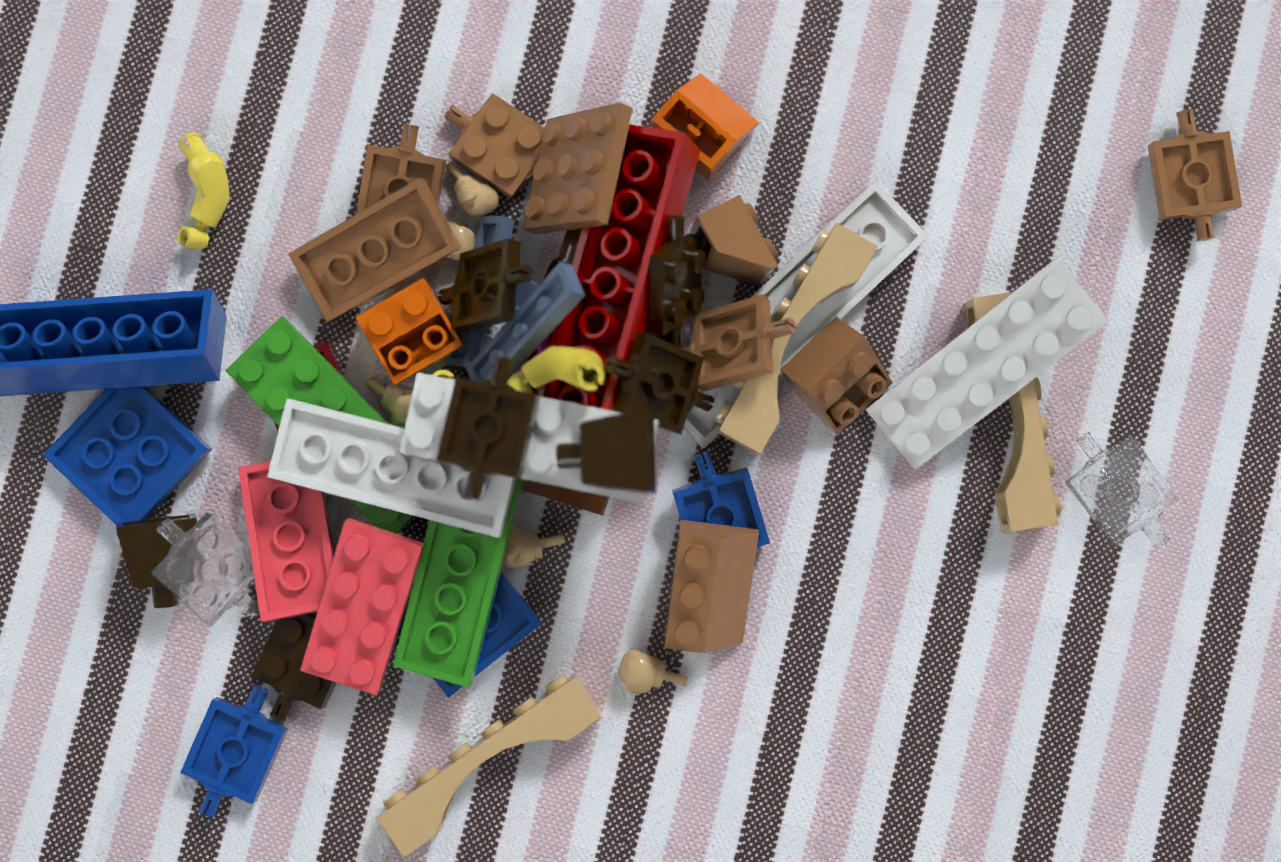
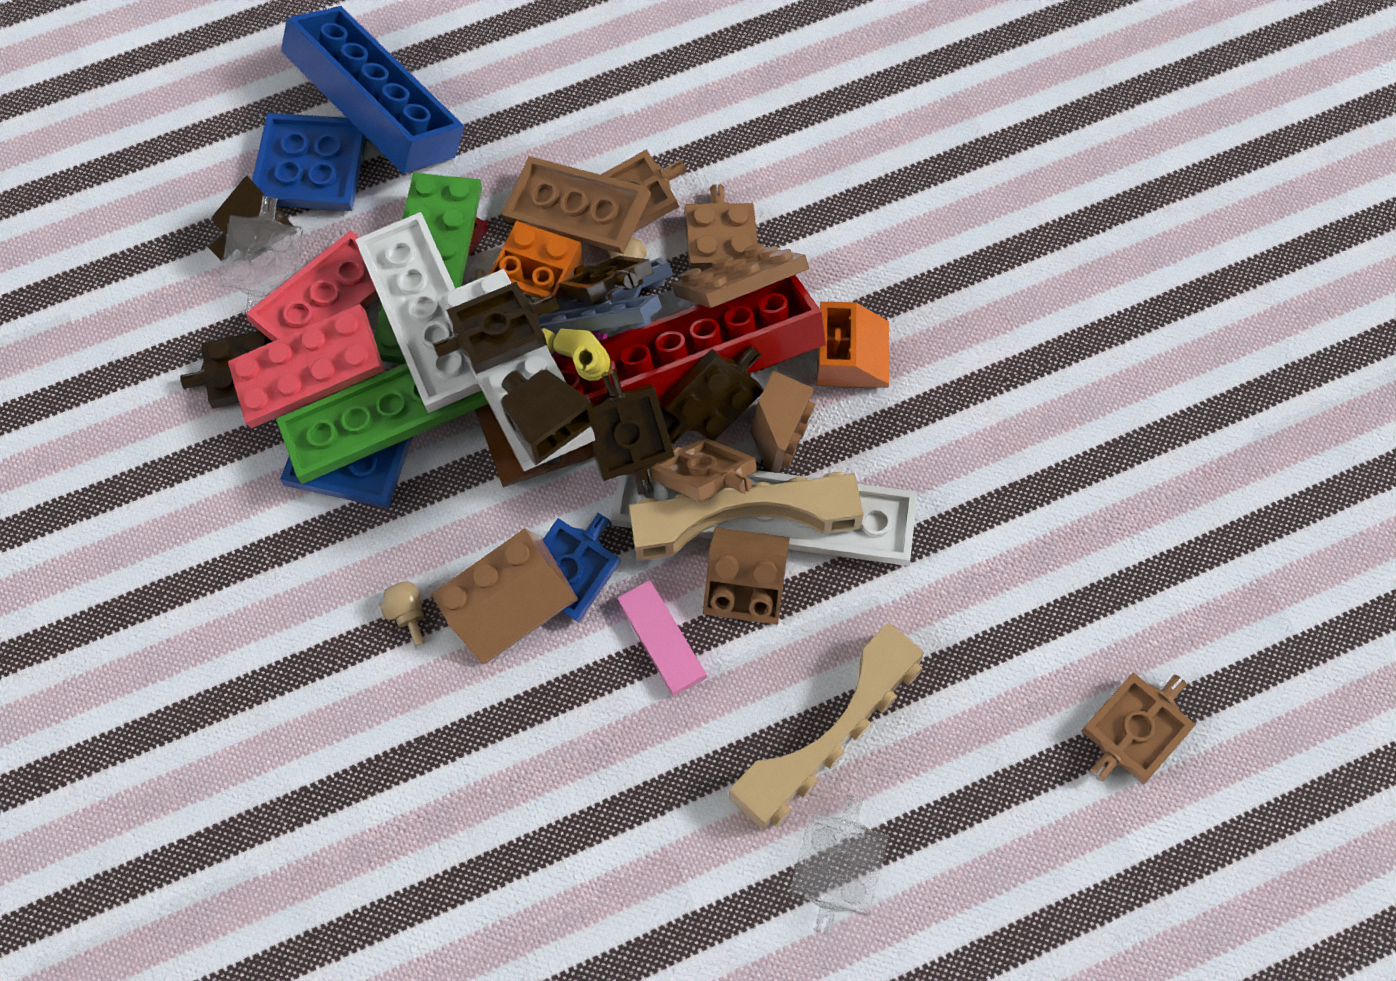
camera: 50 degrees right, 20 degrees down
(211, 187) = (539, 83): light yellow arm -> none
(234, 750) = (136, 370): blue plate -> none
(471, 194) = (669, 240): tan piece -> none
(526, 547) = (433, 450): tan piece -> none
(558, 715) = (180, 524): tan arch -> none
(833, 483) = (661, 638): none -> bright pink tile
(987, 363) = (846, 668): white plate -> none

